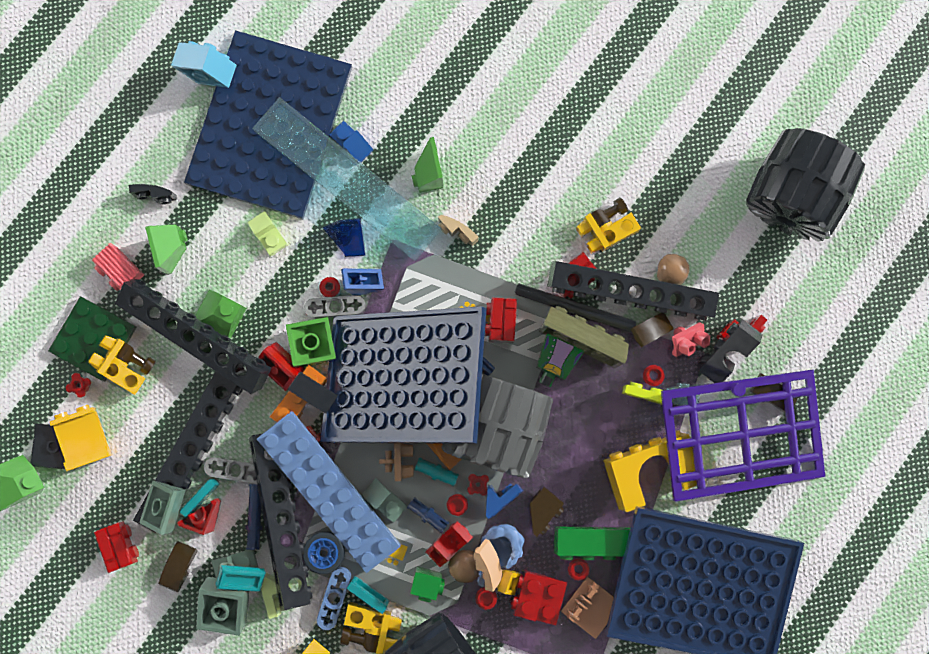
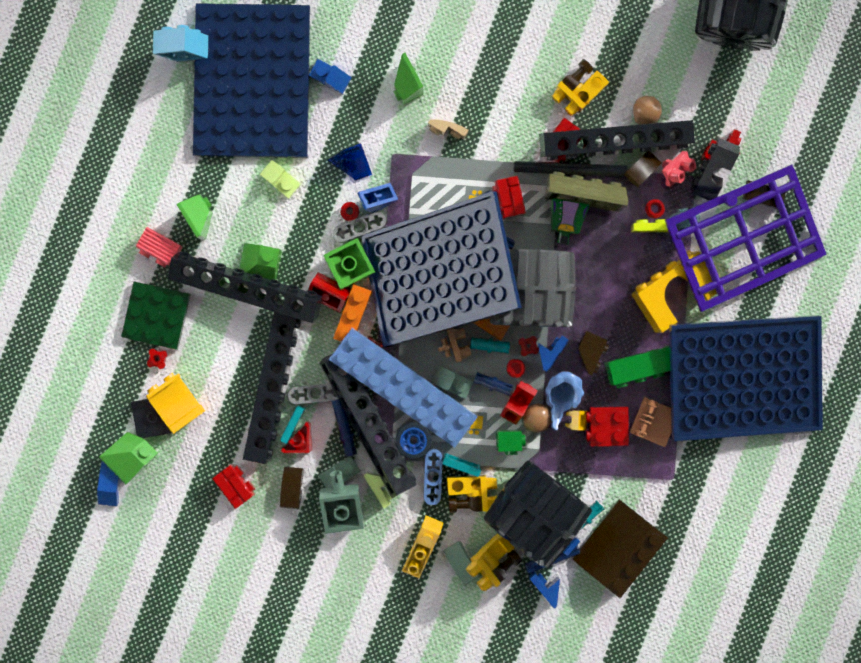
camera: 15 degrees left, 5 degrees up
(116, 362) = (185, 331): yellow hips -> none
(159, 194) = (175, 171): black slope -> none
(162, 507) = (264, 440): sand green slope -> none
(240, 578) = (351, 480): teal tile -> none
(313, 392) = (365, 306): black slope -> none
(347, 179) = (337, 111): clear light blue plate -> none
(485, 599) = (562, 439): red plate -> none
(489, 564) = (557, 407): light nougat slope -> none
(585, 569) = (639, 397): red plate -> none

